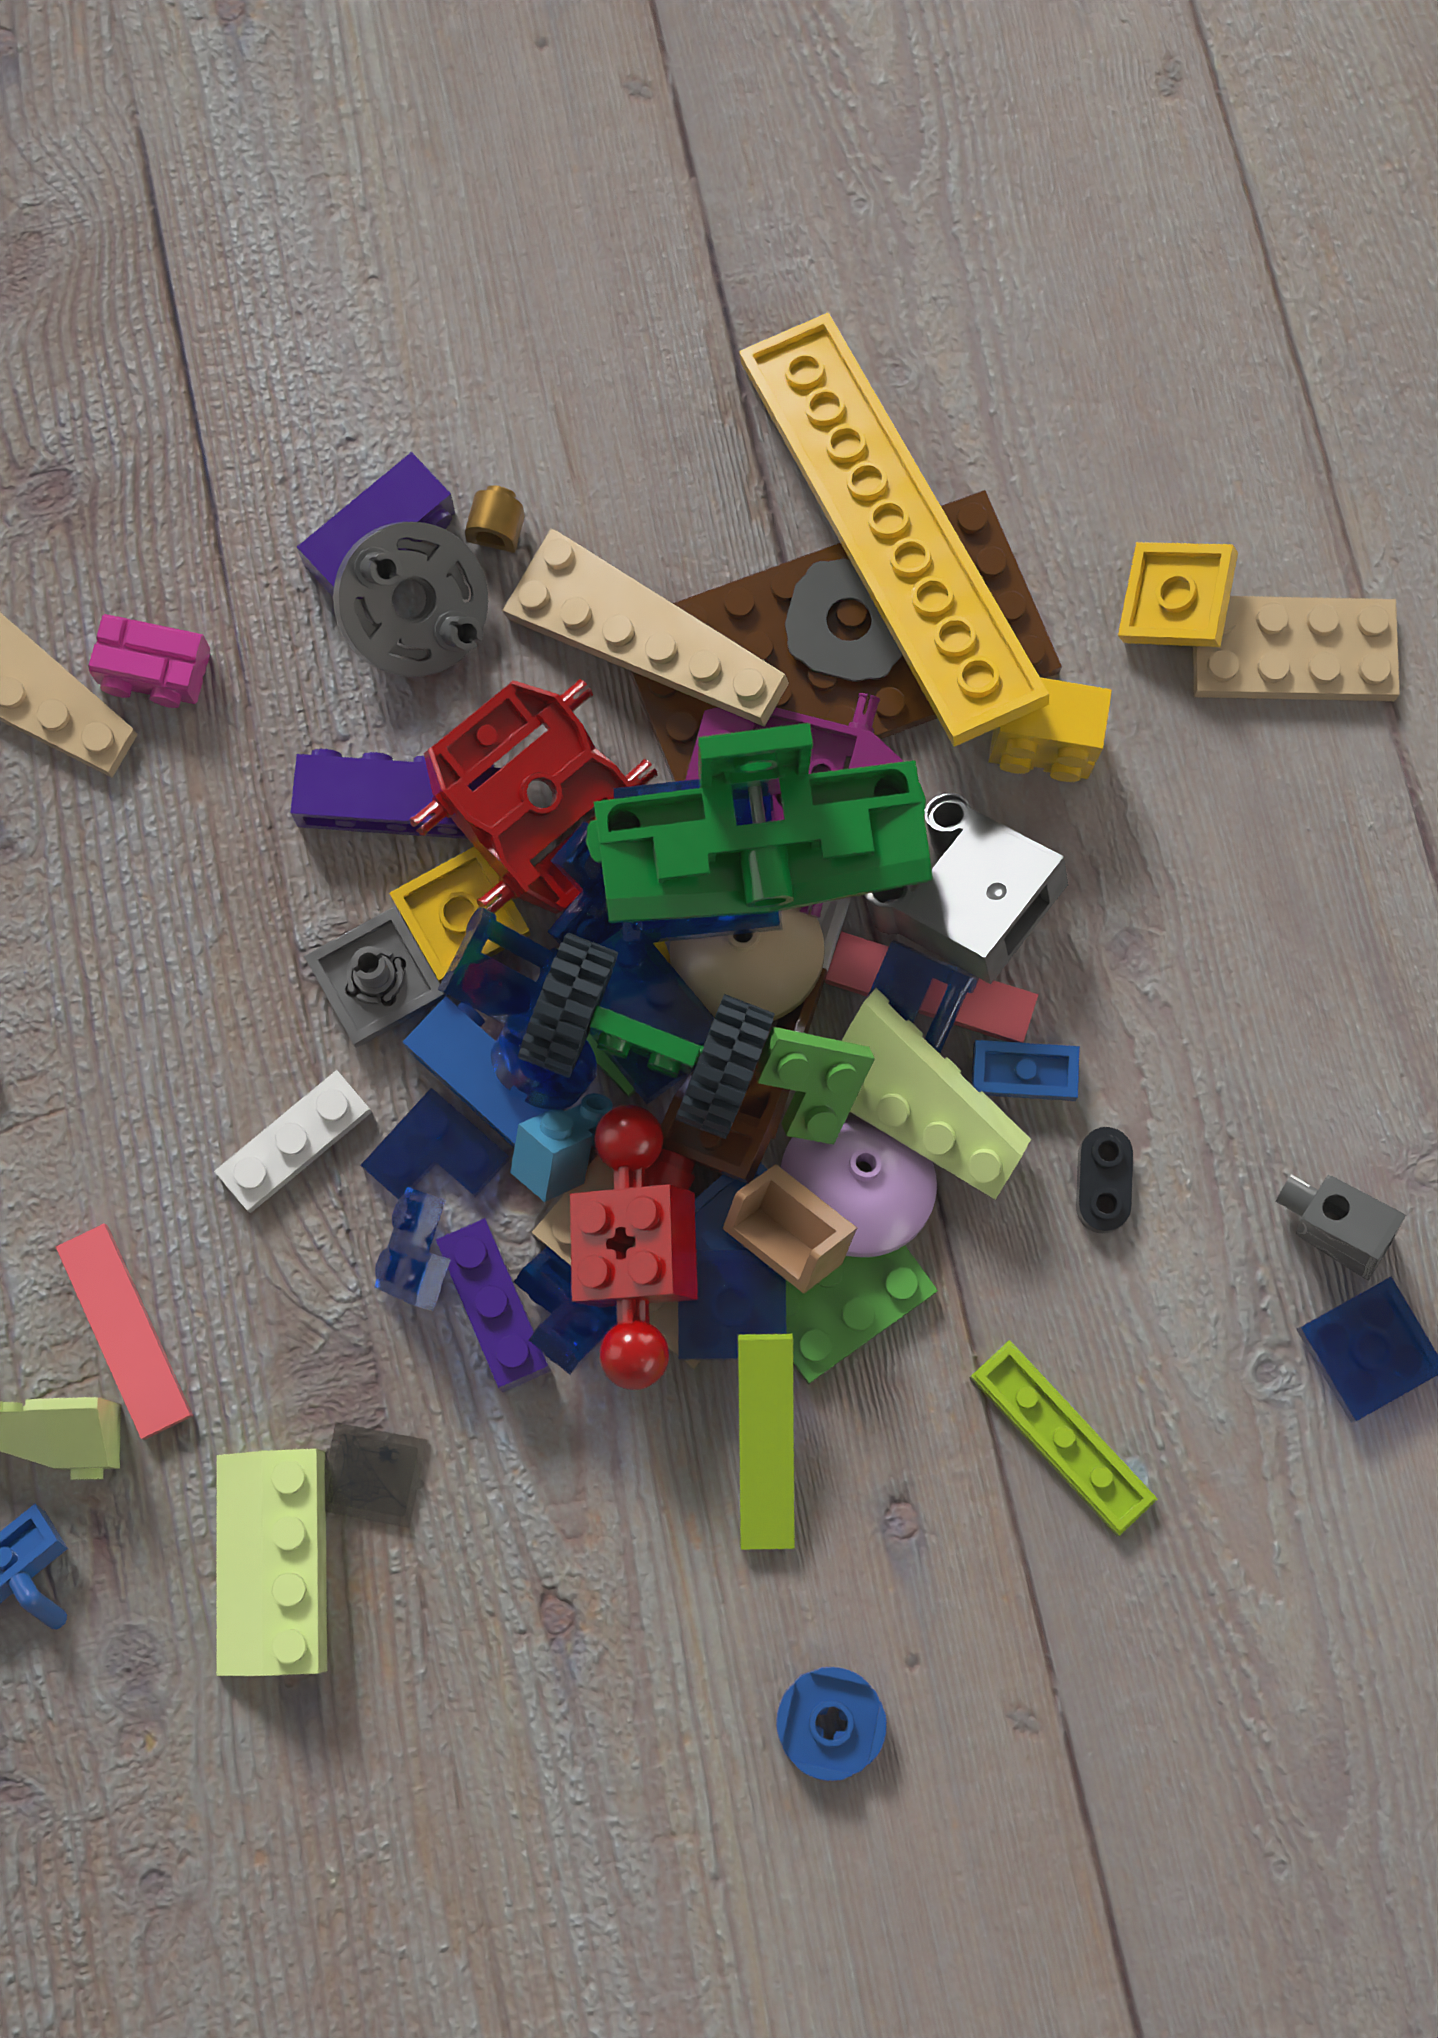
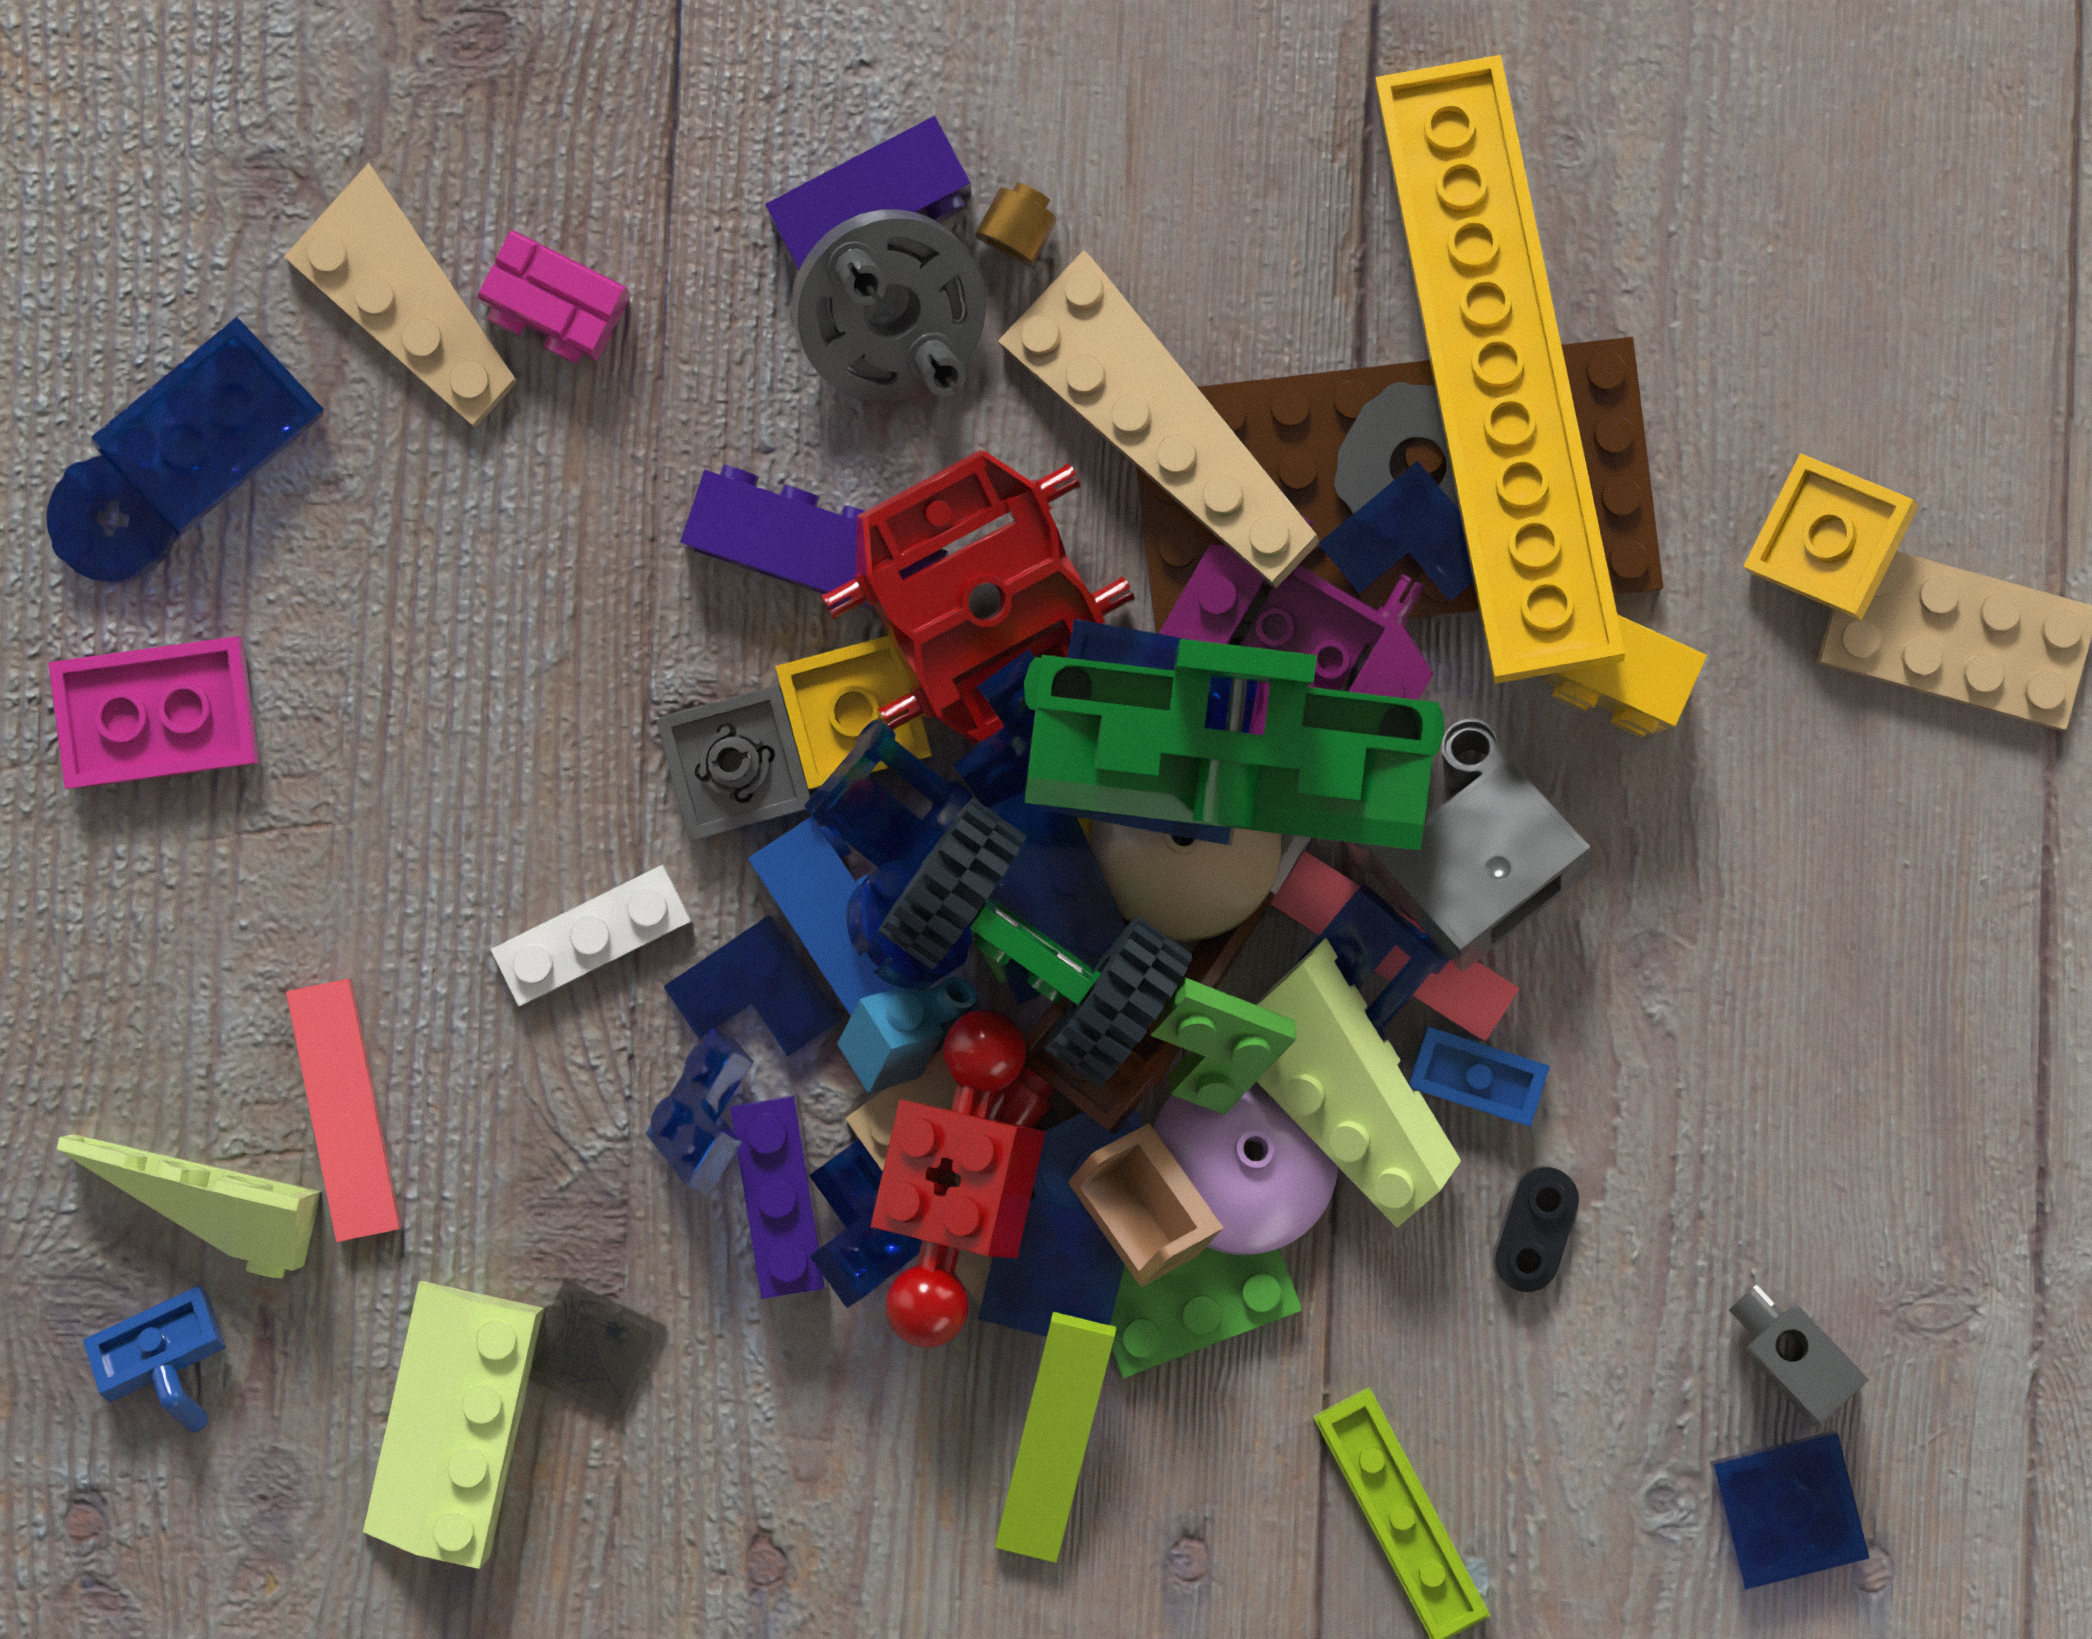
camera: 15 degrees right, 10 degrees up
(850, 656) = (1402, 519): none -> clear blue plate

